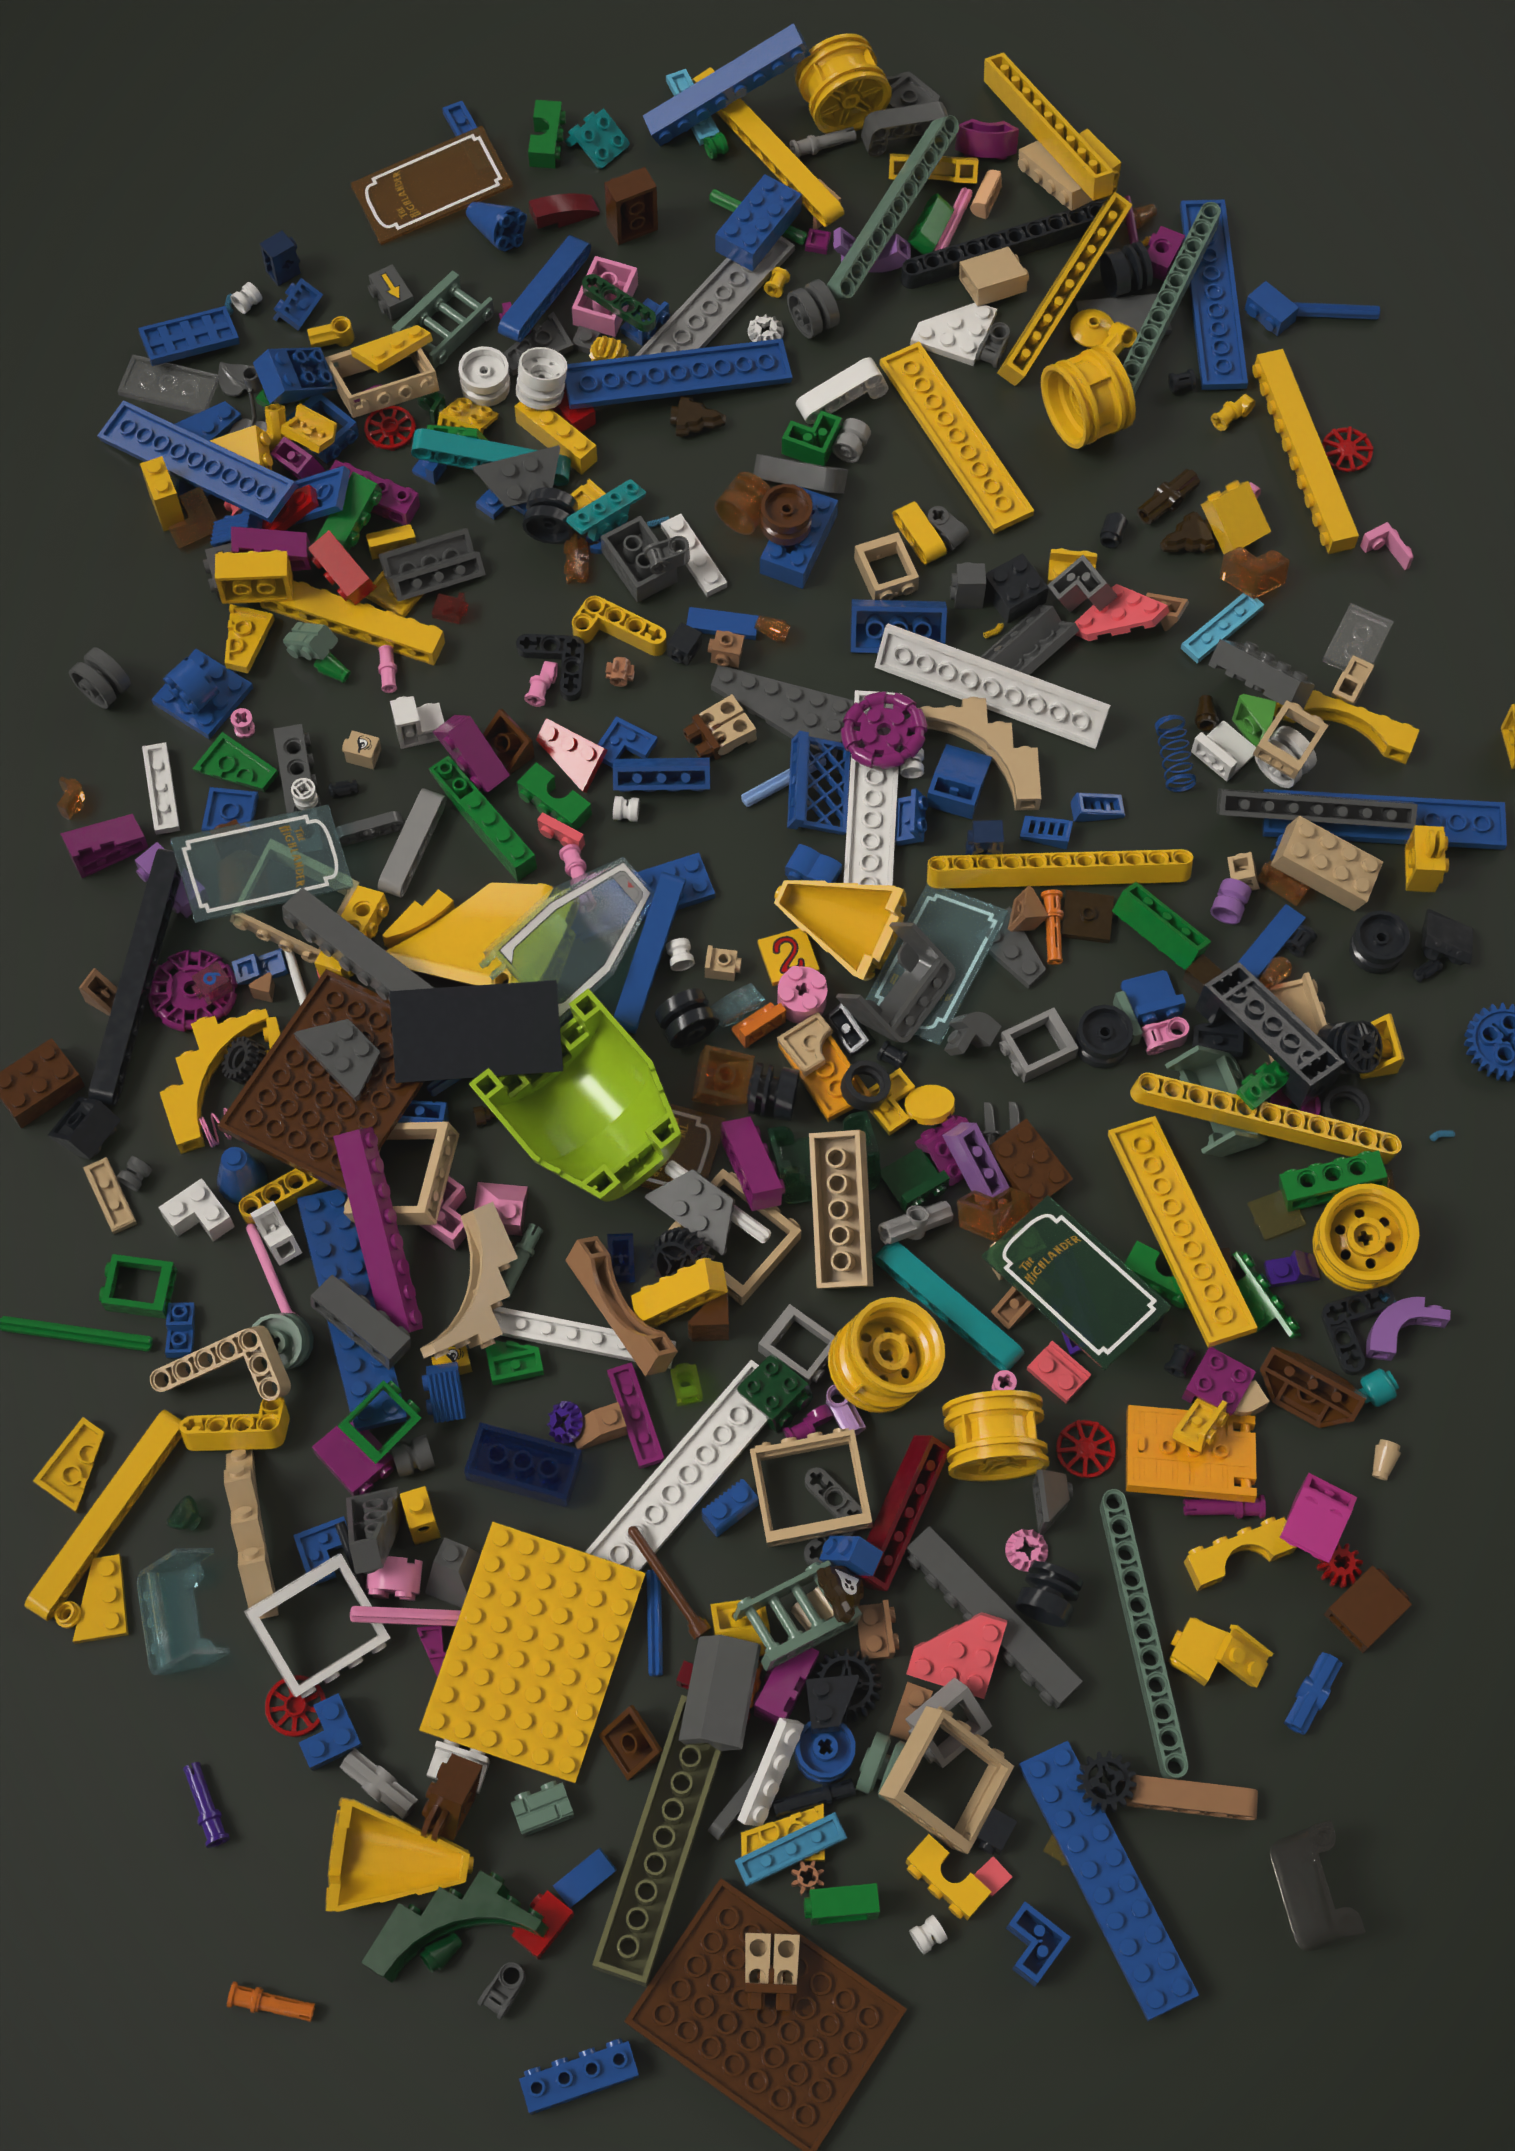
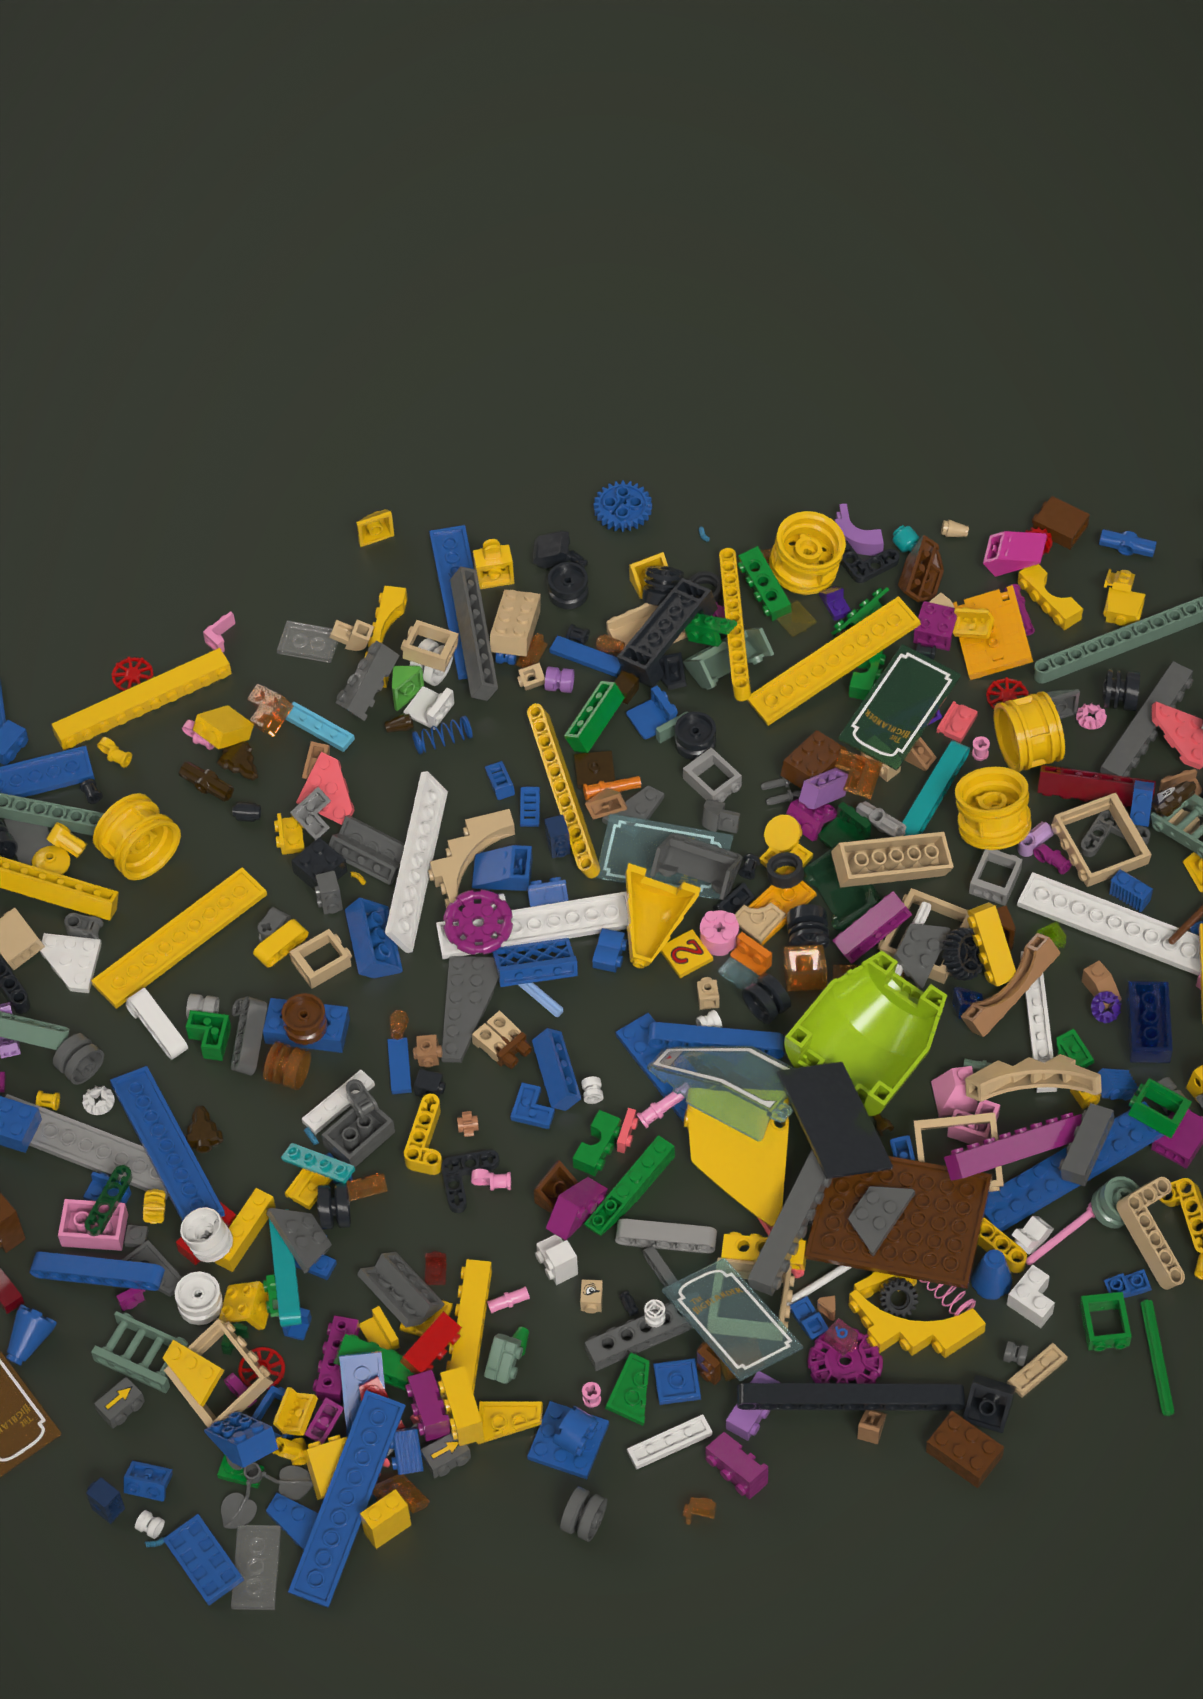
camera: 100 degrees left, 10 degrees down
(337, 332) = (175, 1441): yellow piece -> none
(418, 918) = (733, 1211): yellow slope -> none
(572, 752) = (551, 1140): wing -> none
(636, 1415) = (1073, 971): magenta plate -> none
(776, 1392) = (1036, 880): dark green bracket -> none
(1160, 1038) = (682, 700): bright pink piece -> none

